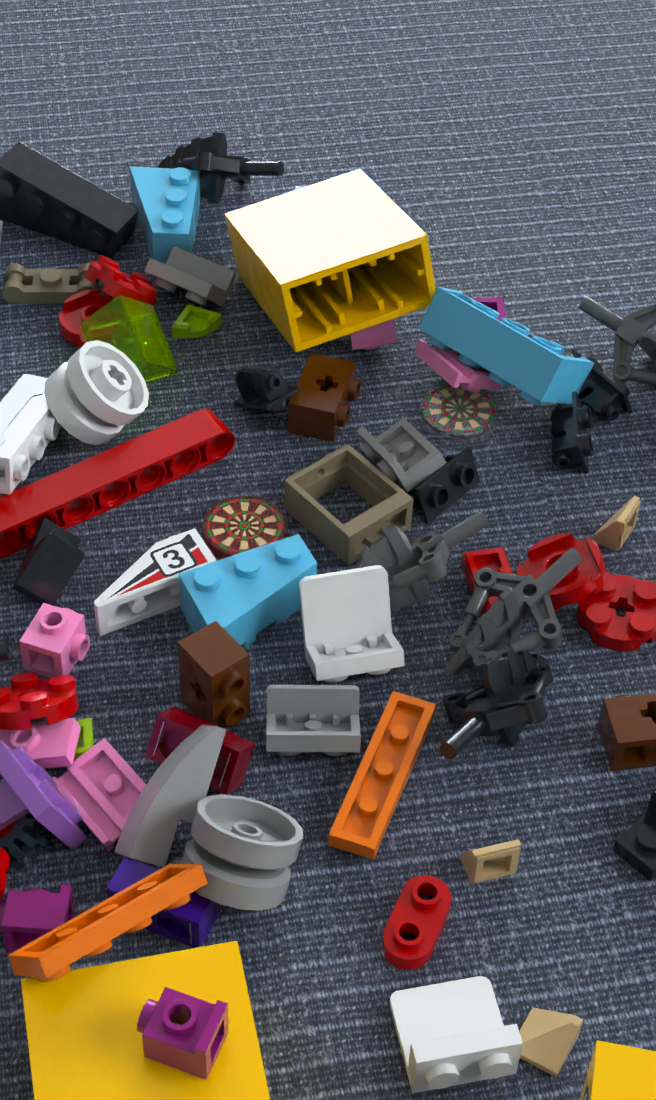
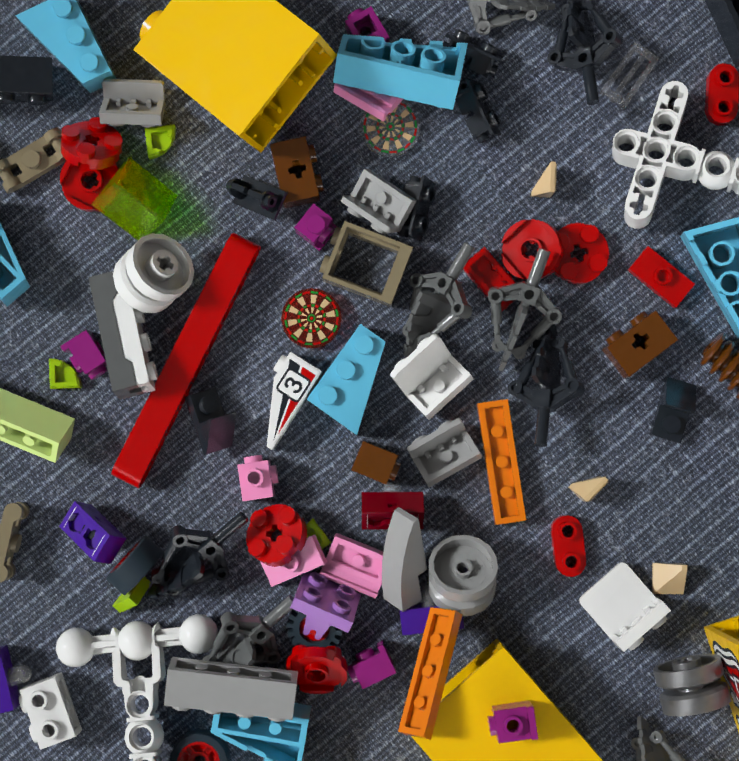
camera: 30 degrees left, 40 degrees up
(308, 440) = (315, 227): none -> magenta brick

